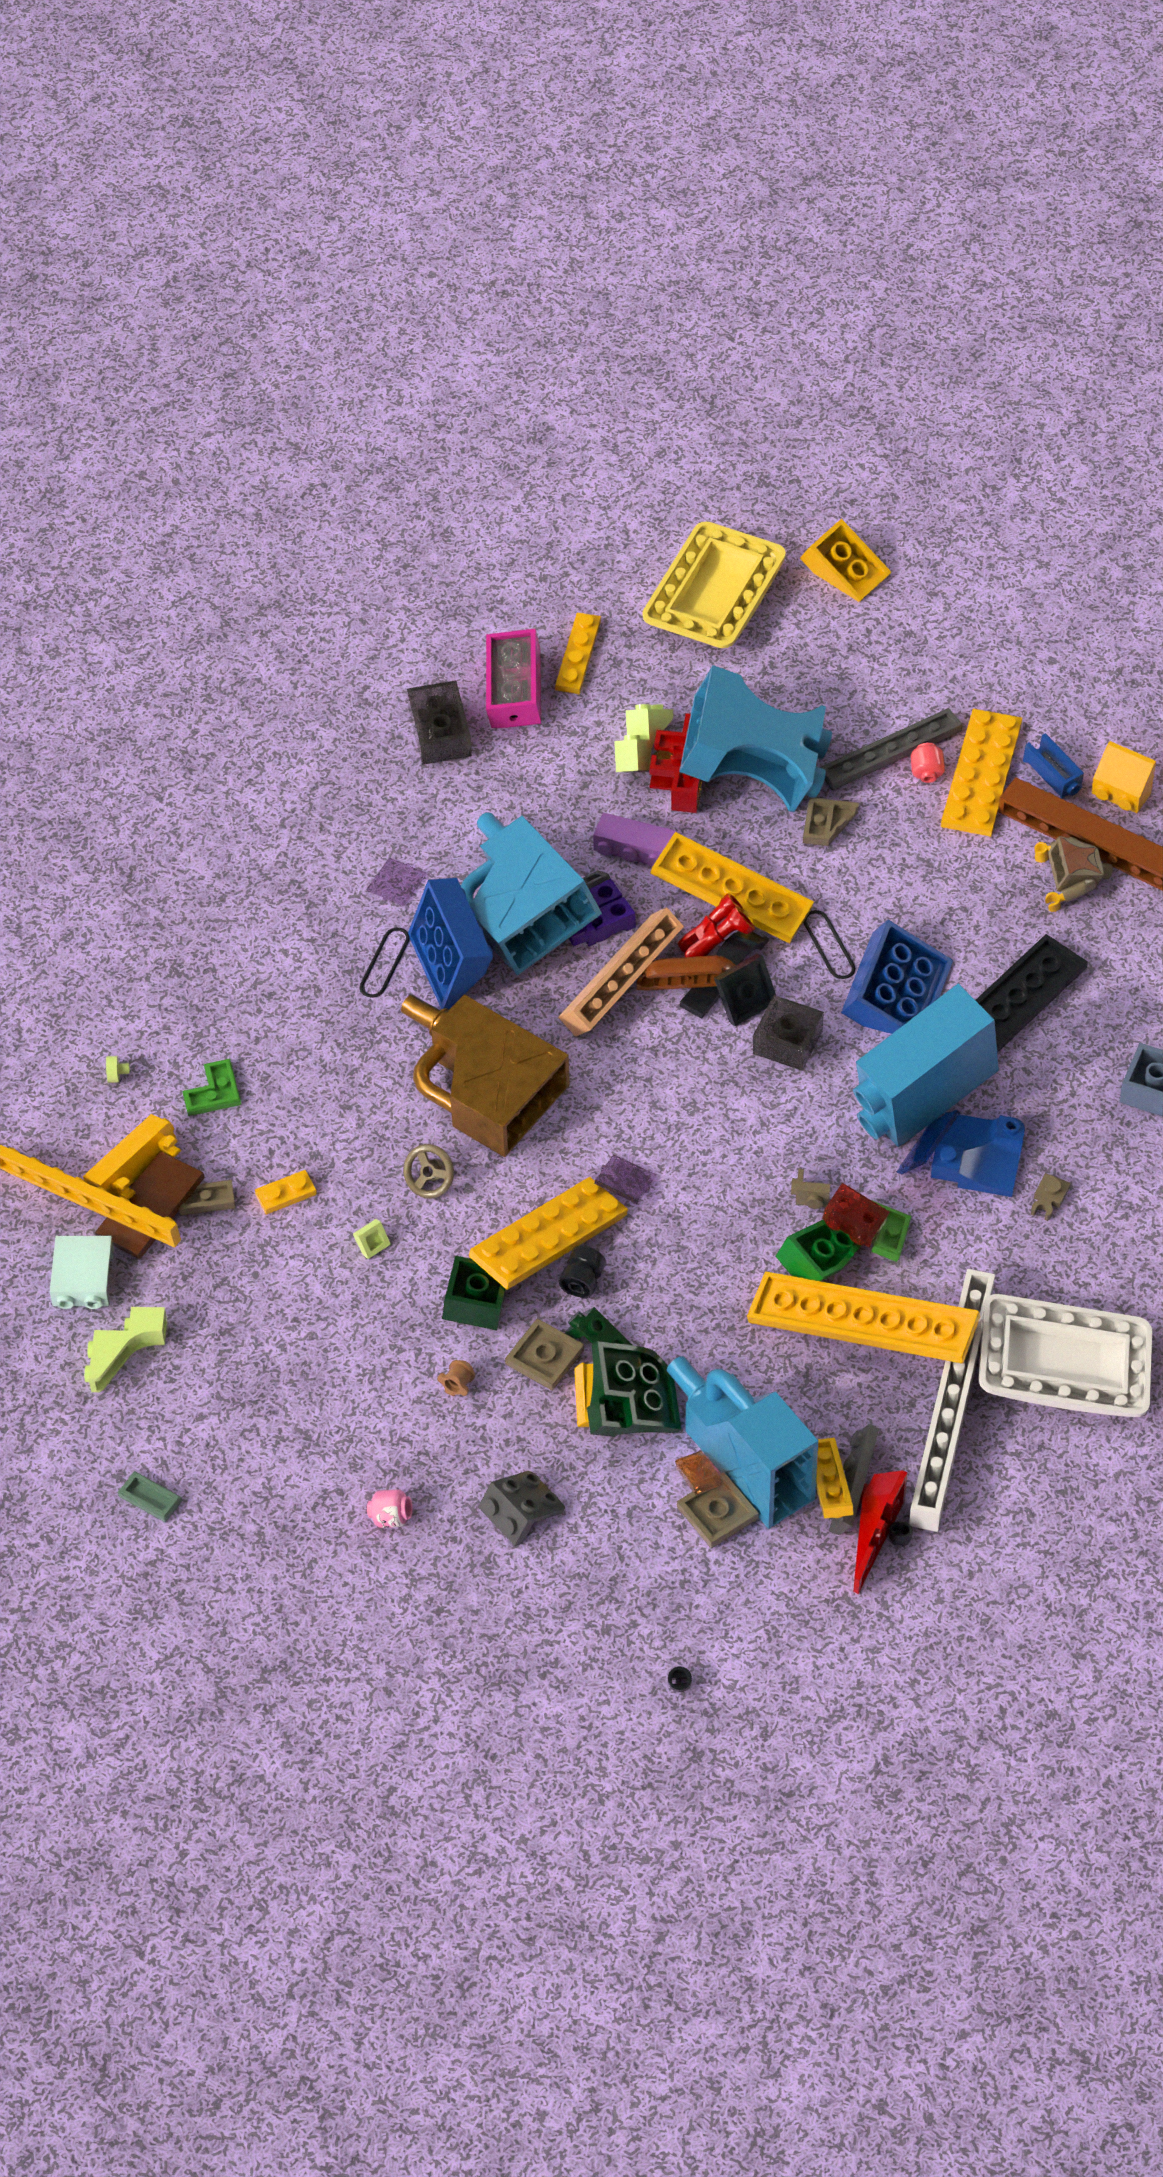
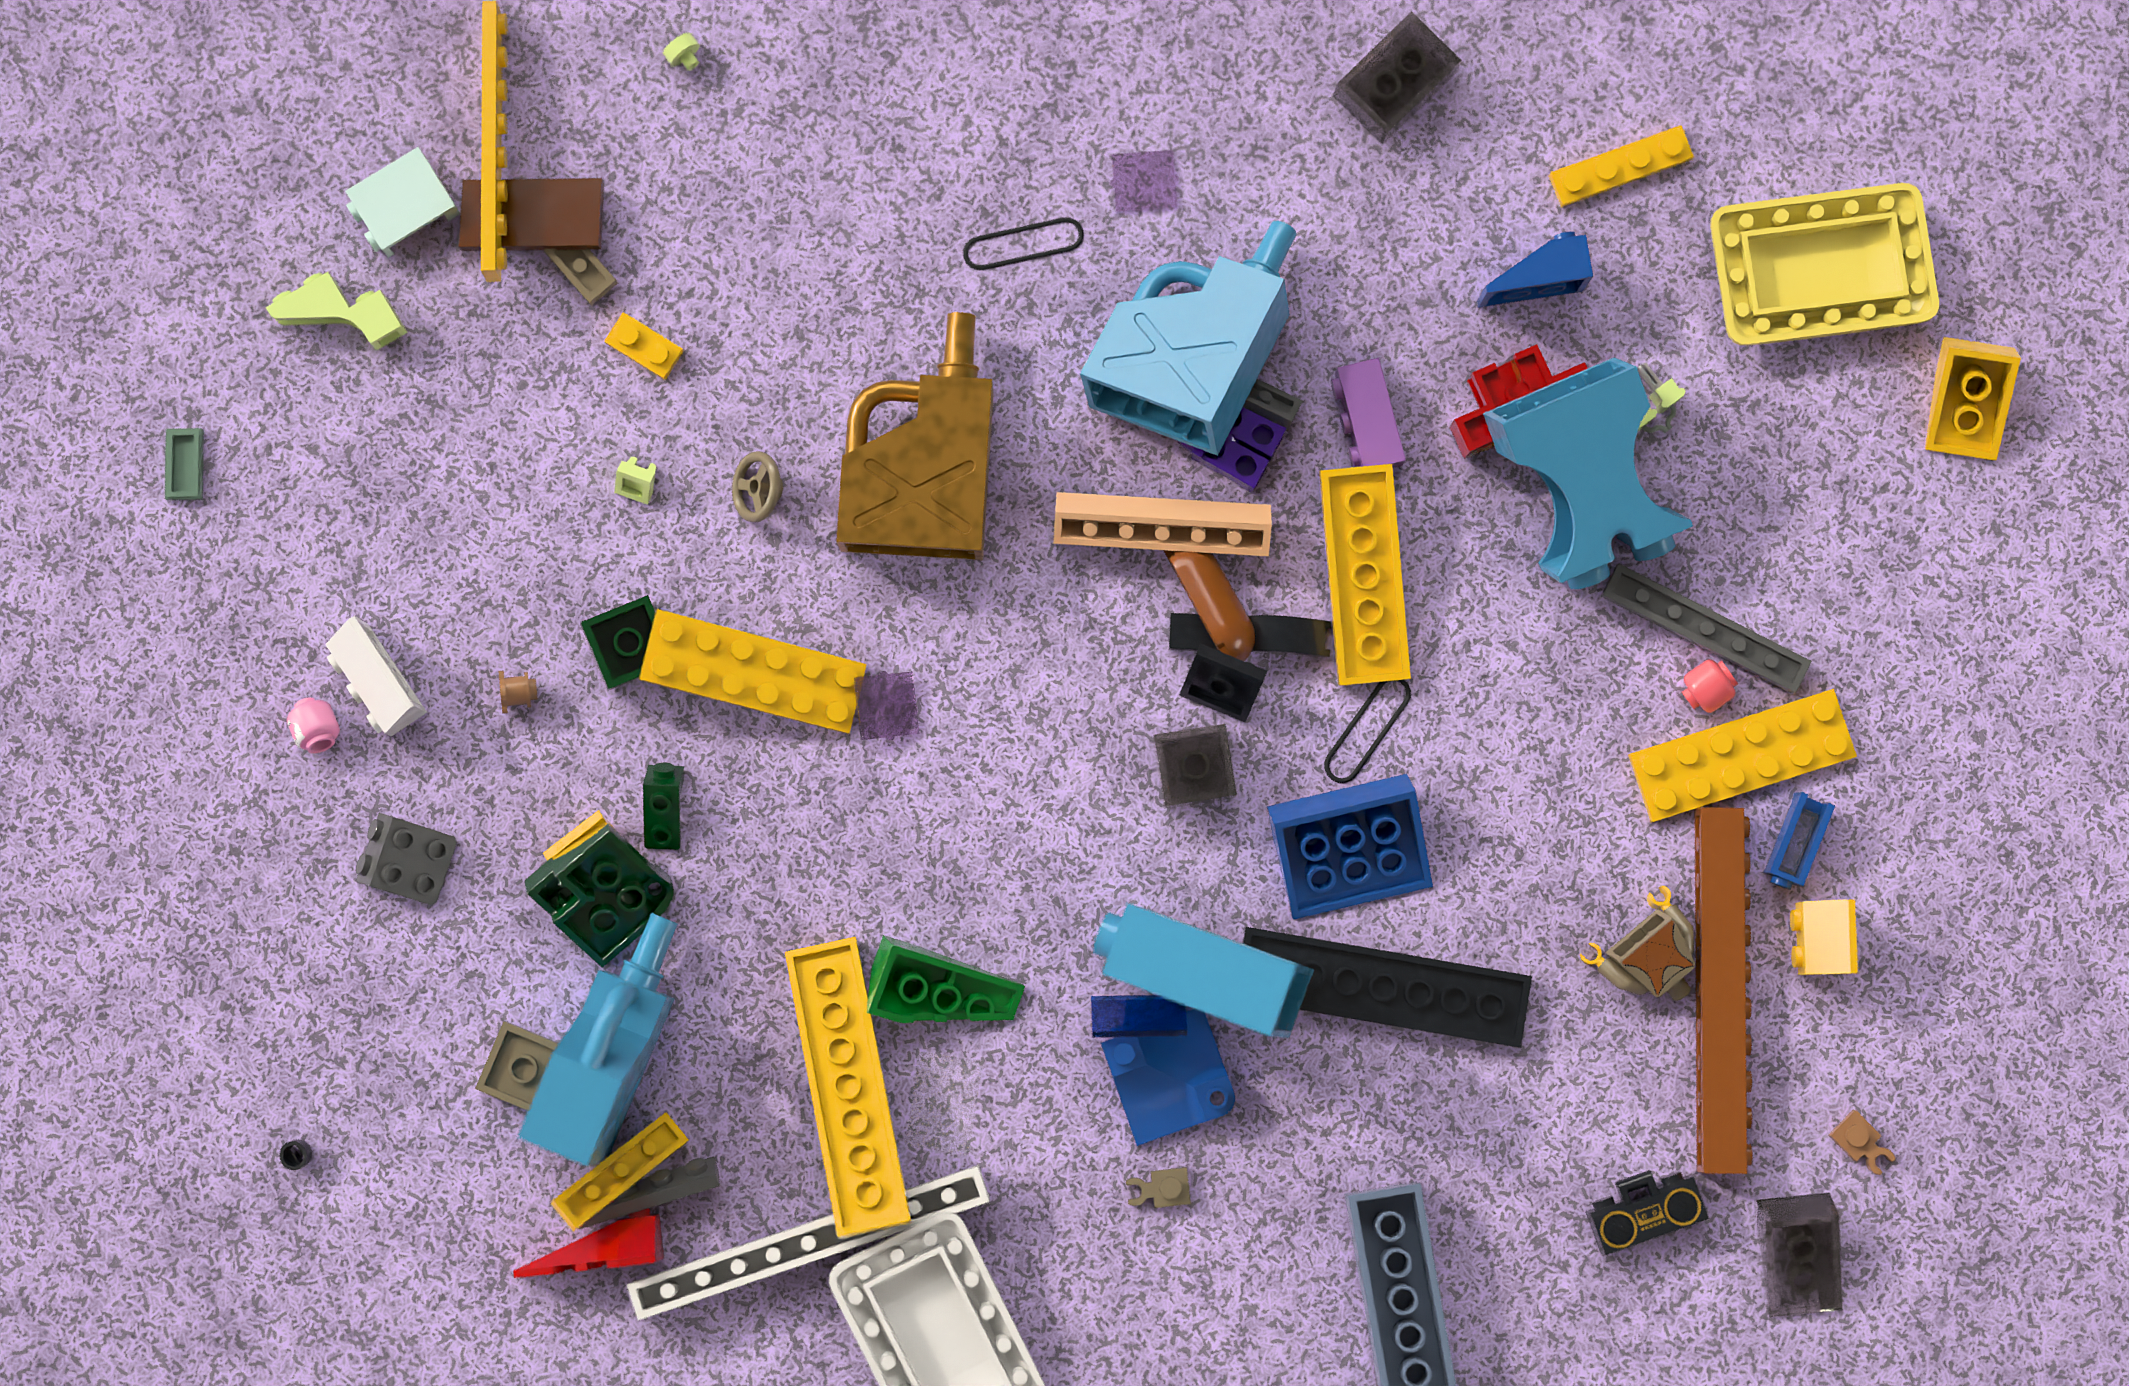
camera: 55 degrees right, 30 degrees up
(132, 1156) = (573, 154): yellow brick -> none
(219, 1092) = (730, 185): bright green tile -> none
(386, 1447) = (373, 677): none -> white slope
(449, 941) = (1071, 309): blue slope -> none
(513, 678) = (1521, 120): brick -> none
(544, 1354) = (605, 763): dark tan plate -> none
(581, 1272) = (729, 738): black wheel -> none
(618, 694) = (1552, 270): none -> blue slope
(642, 723) = (1540, 321): yellowish green arch -> none
(698, 1472) = (549, 1023): clear orange plate -> none
(708, 934) = (1281, 591): red piece -> none
(809, 1193) = (990, 928): dark tan bracket -> none
(827, 819) = (1546, 618): dark tan wing -> none
(855, 1215) = (970, 1001): clear red brick -> none
(892, 1235) = (1004, 1037): bright green tile -> none
(903, 1528) = (614, 1288): black hinge -> none

